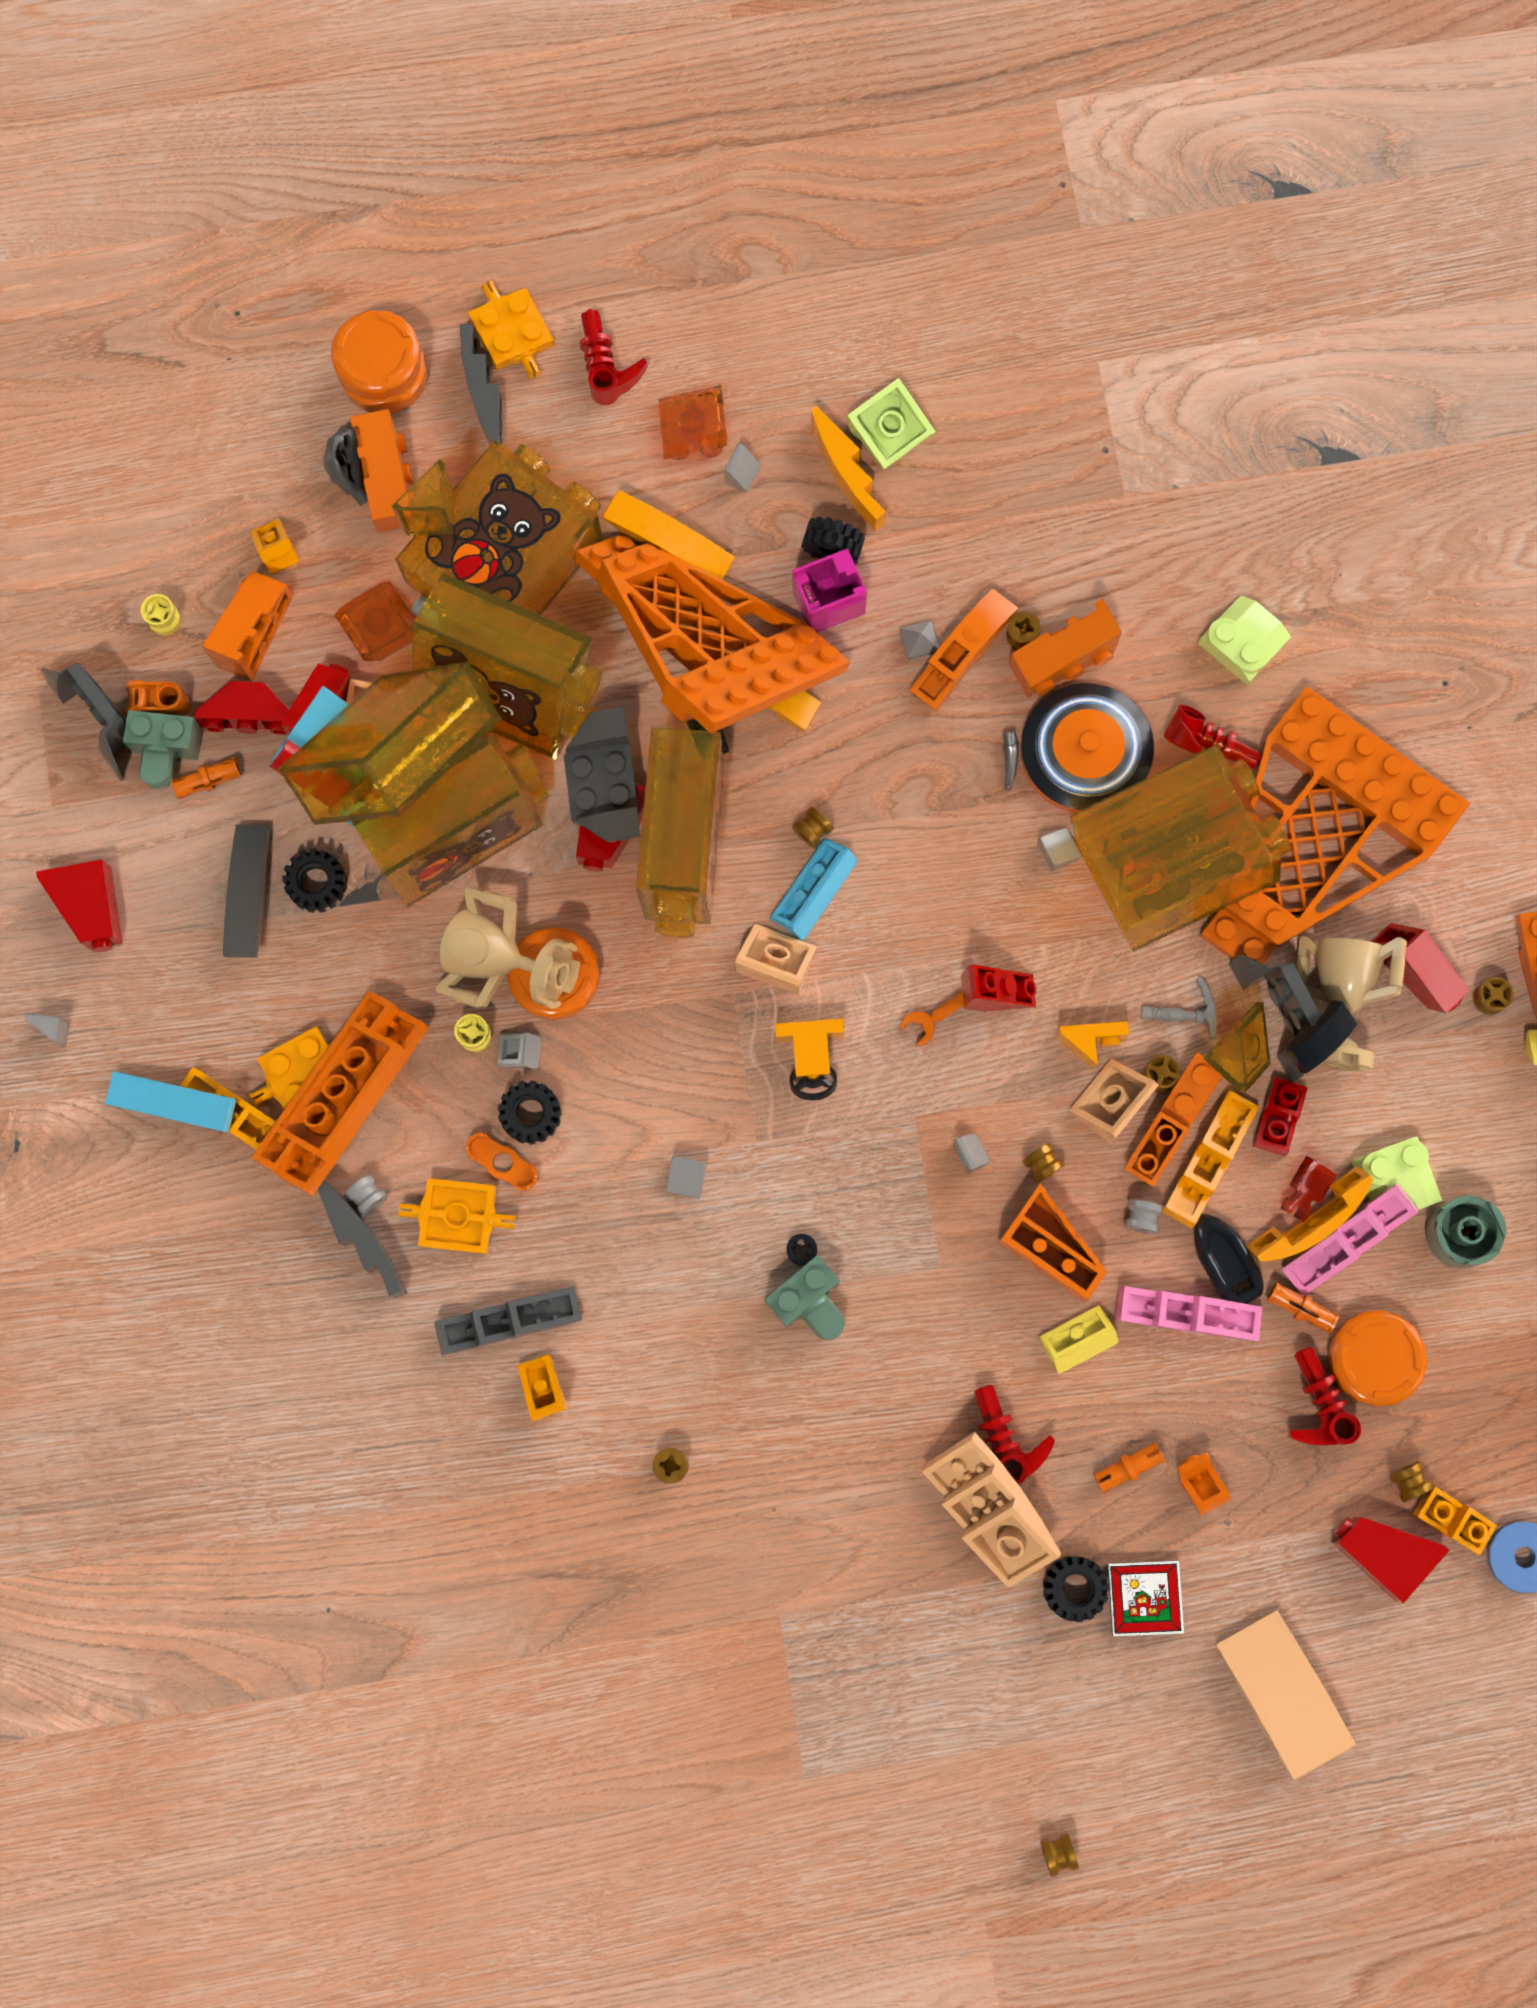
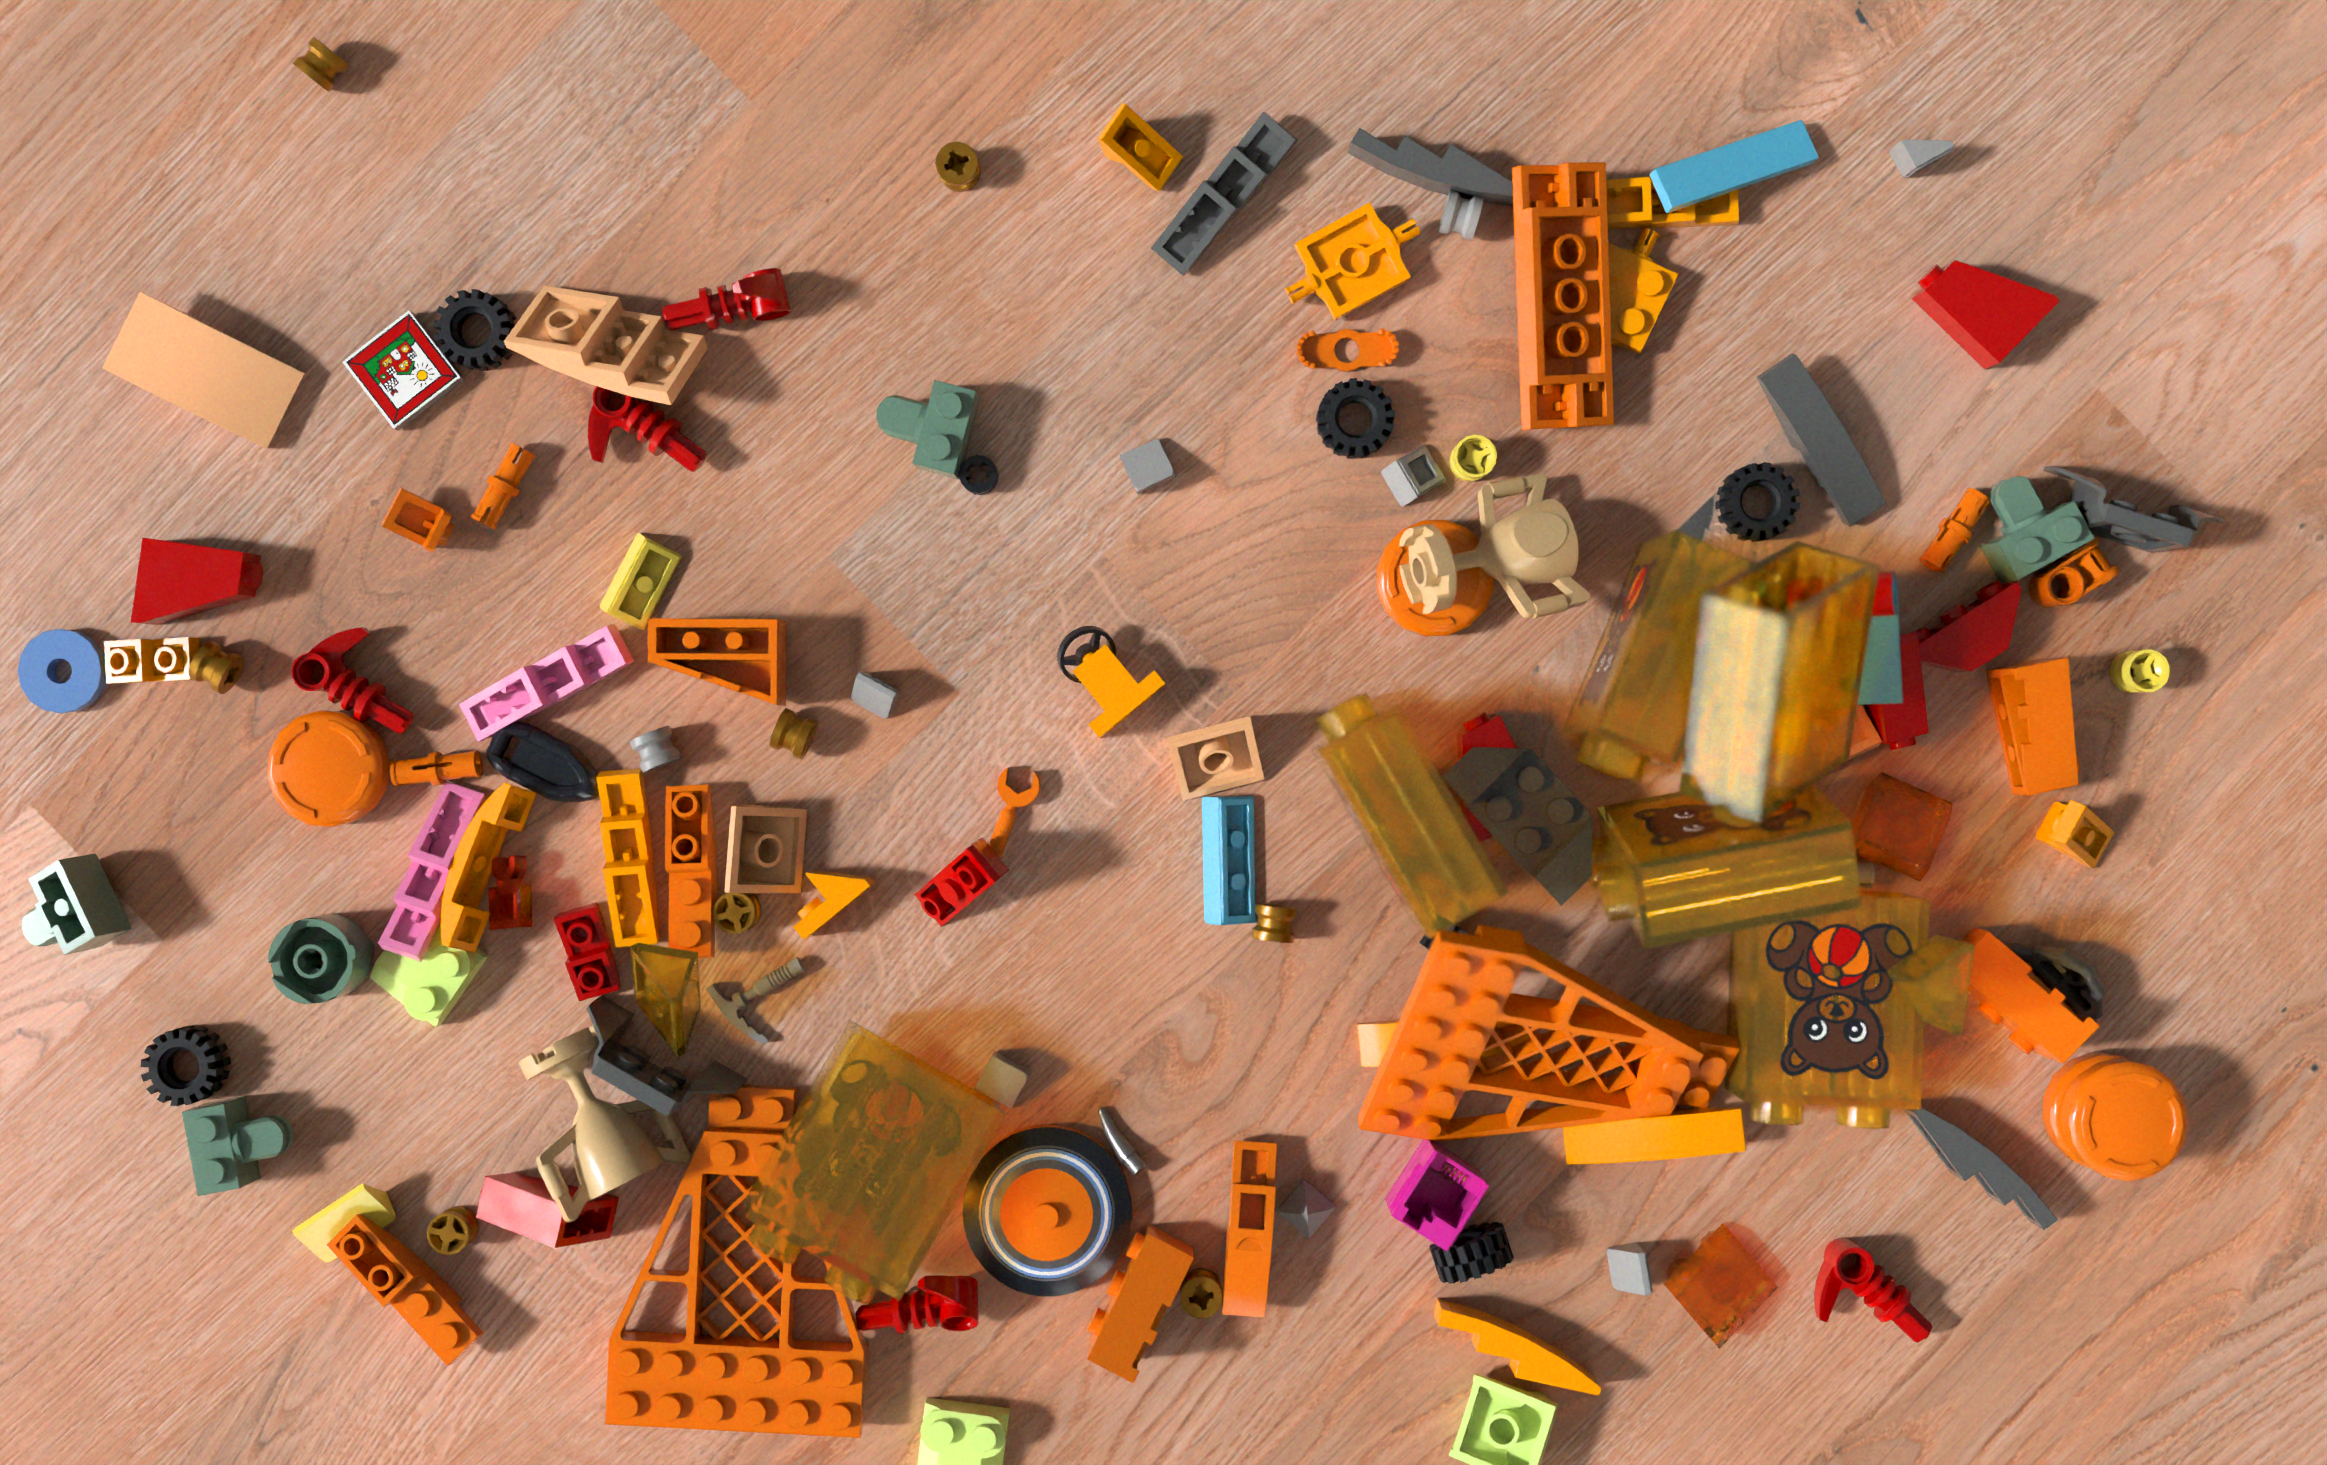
camera: 145 degrees right, 10 degrees up
(511, 329) = (1998, 1256): light orange plate -> none
(863, 1471) = (757, 292): none -> red piece
(1318, 1042) = (584, 1044): black slope -> none

